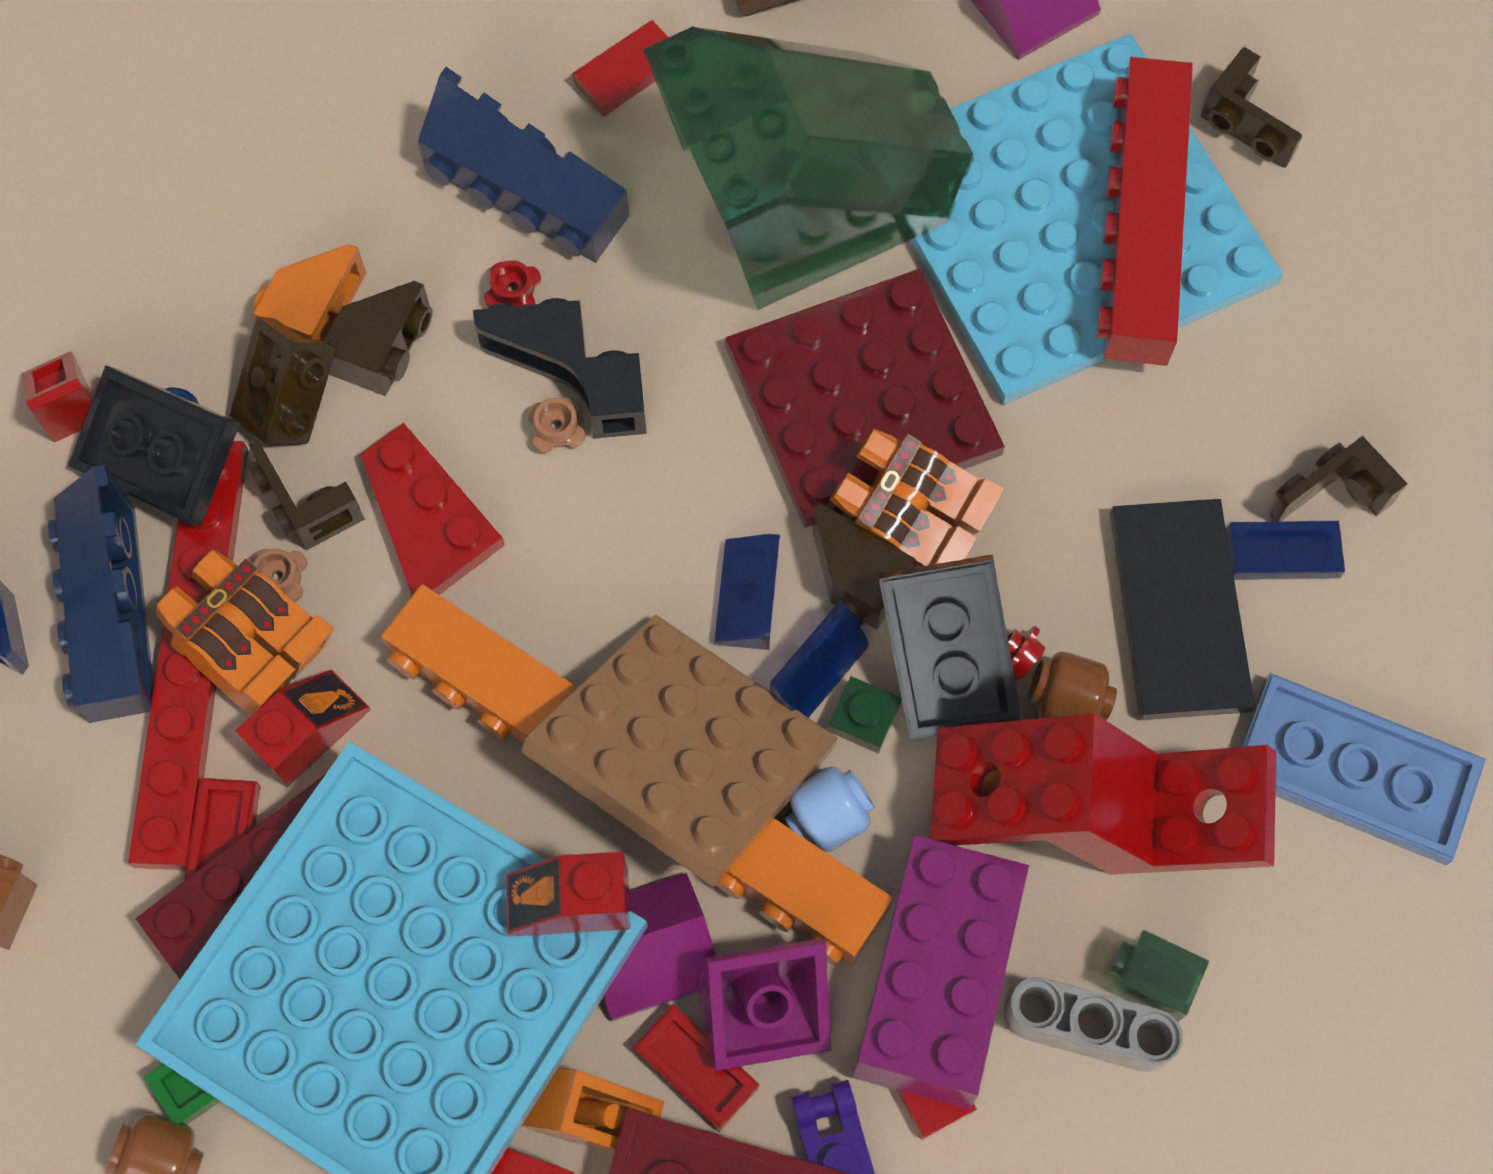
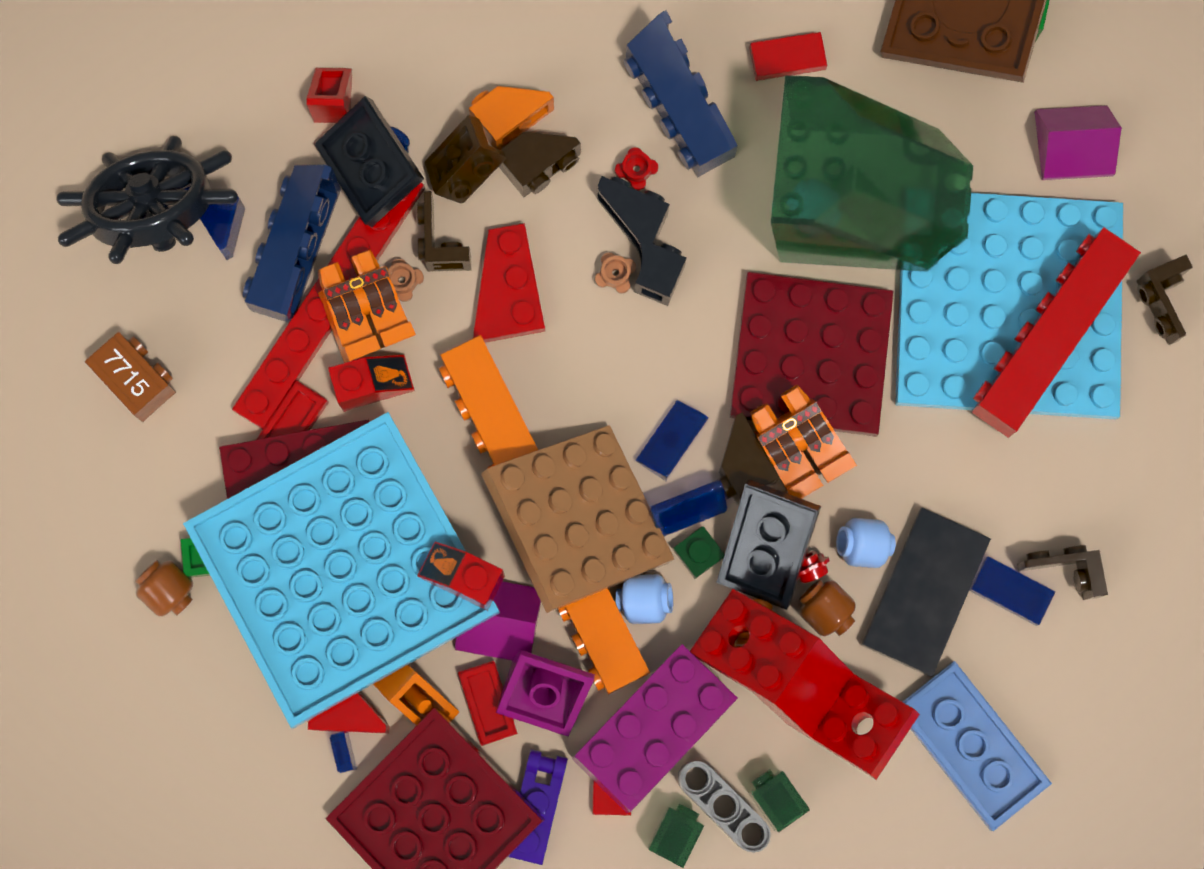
camera: 25 degrees right, 10 degrees up
(1053, 1100) = (676, 835): none -> clear green brick
(1069, 585) = (865, 542): none -> light blue head

